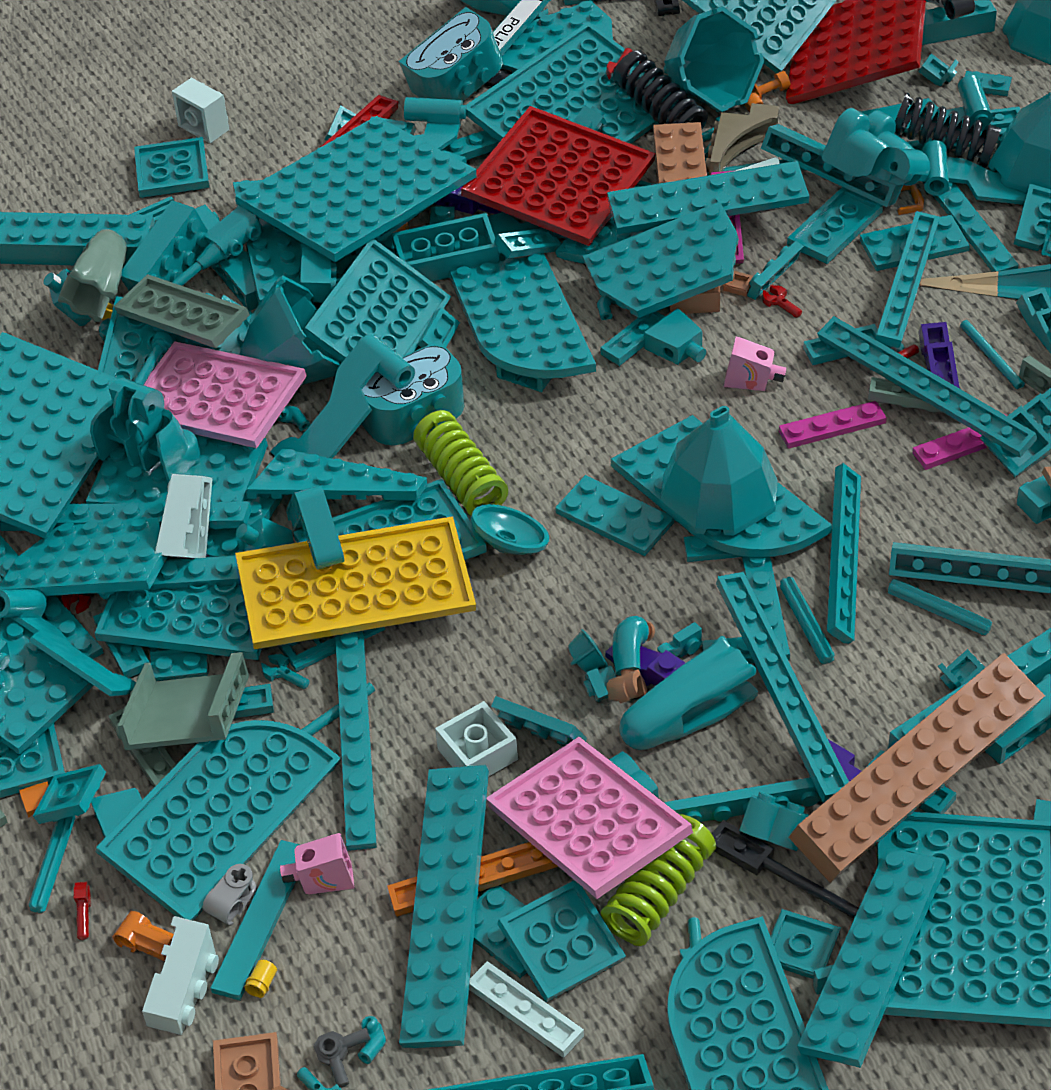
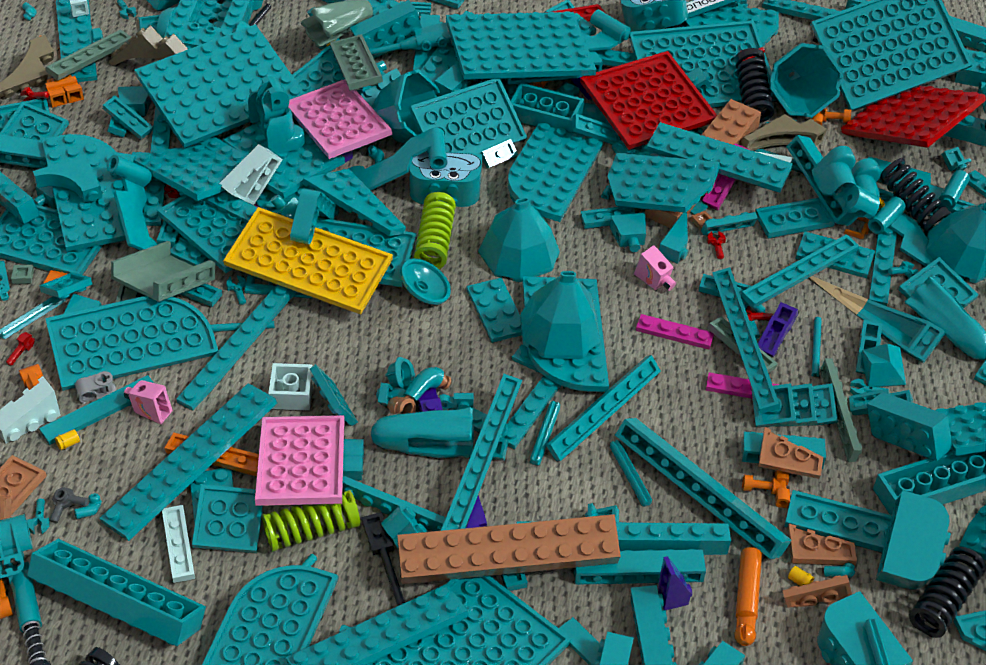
camera: 30 degrees right, 0 degrees up
(160, 344) = (336, 76): teal piece -> none
(571, 423) = (519, 243): none -> teal piece
(738, 318) = (675, 242): none -> teal slope
(803, 942) = (356, 605): teal tile -> none
(999, 219) = (904, 268): none -> teal bar

